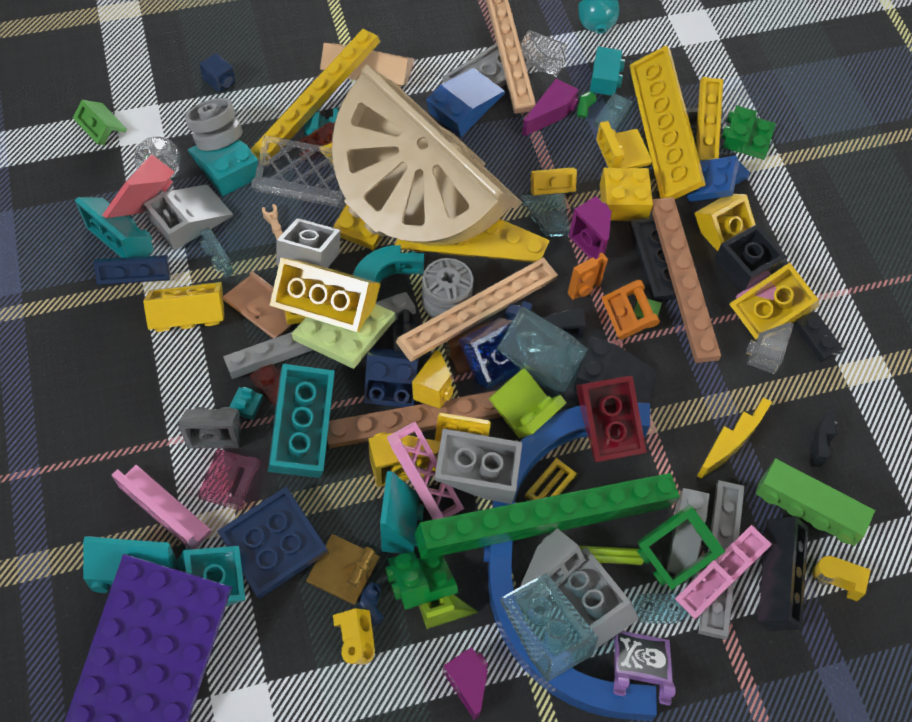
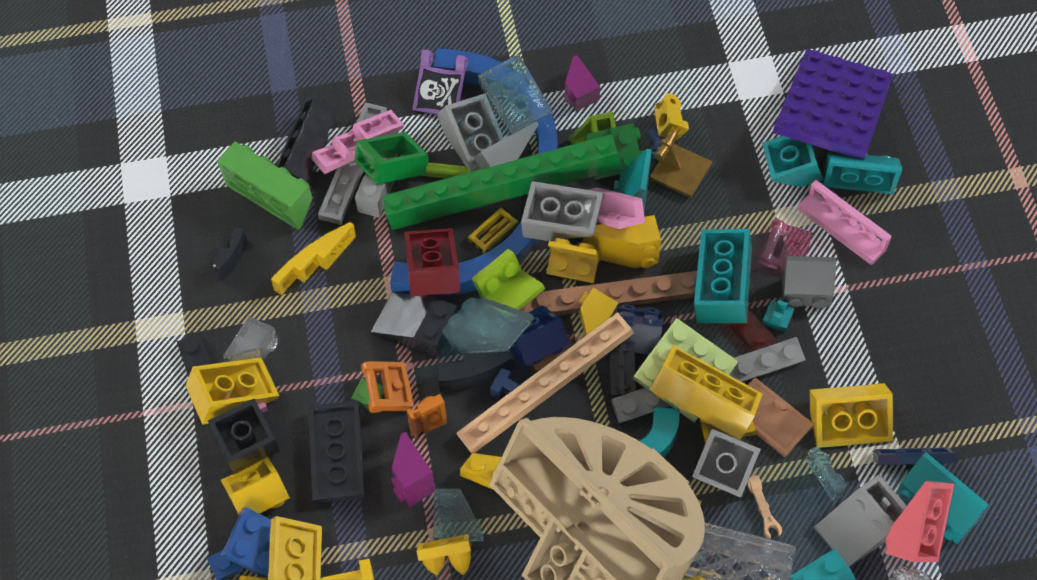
camera: 170 degrees left, 0 degrees up
(273, 542) = (742, 189): dark blue plate -> none
(445, 285) = (580, 393): light grey wheel -> none
(626, 193) = (362, 528): yellow brick -> none
(661, 610) = (415, 130): clear light blue plate -> none
(685, 281) = (322, 420): nougat plate -> none
(843, 575) = (260, 144): yellow leg -> none

